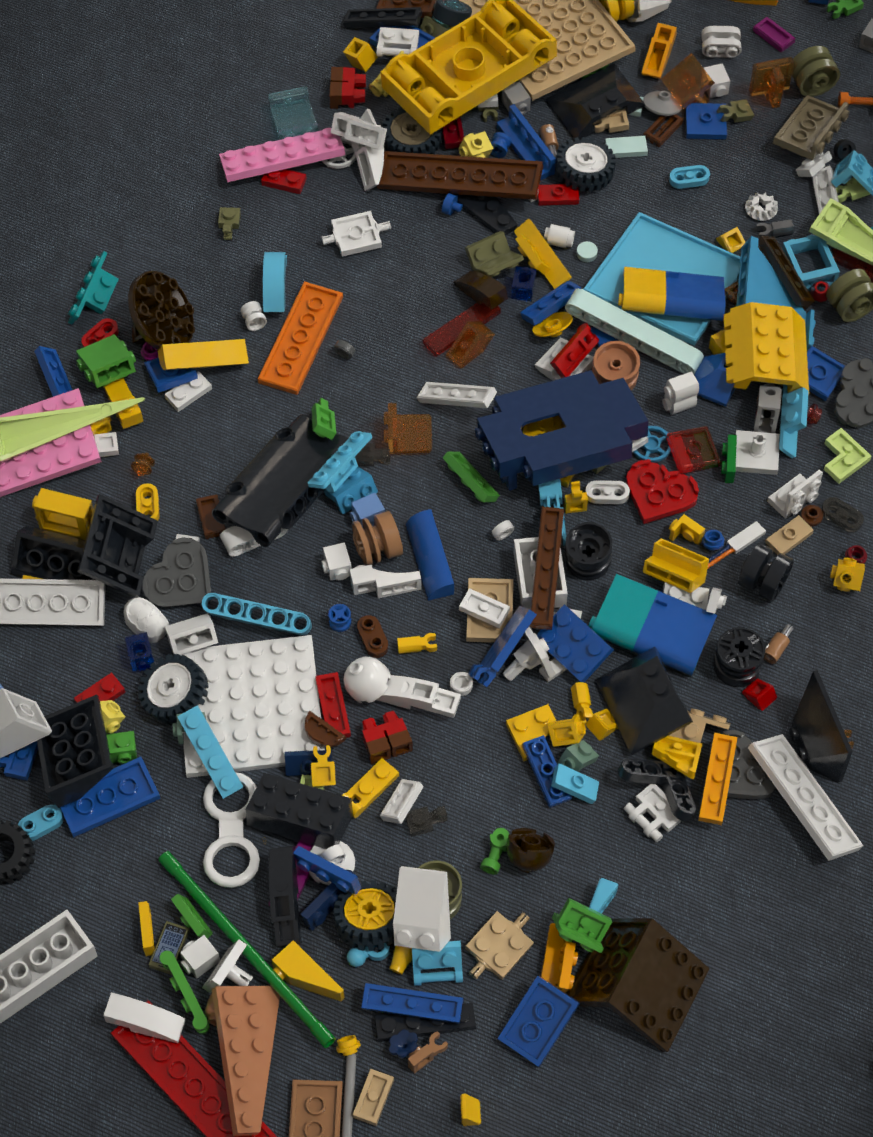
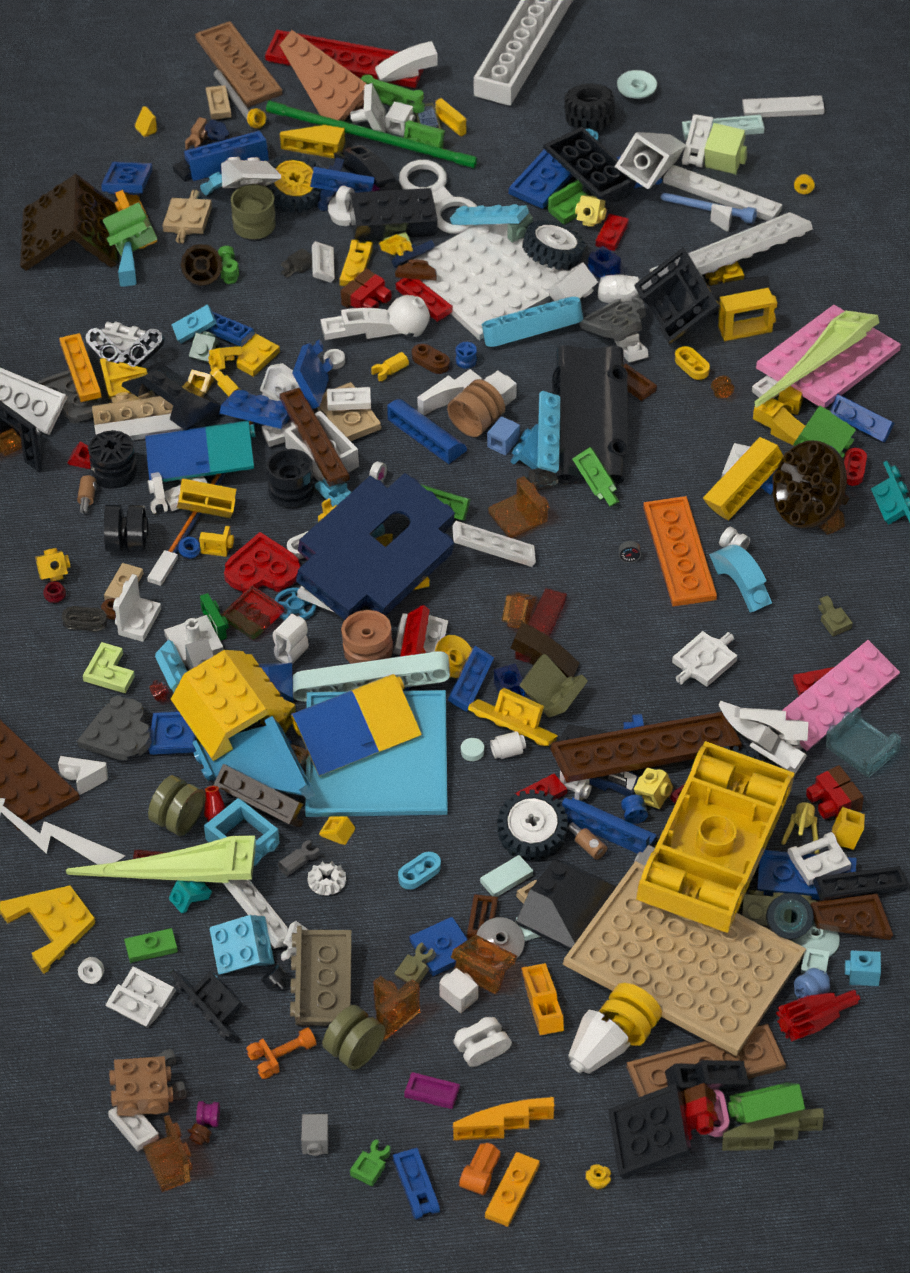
camera: 150 degrees right, 10 degrees down
(706, 700) = (140, 427): none -> white tile

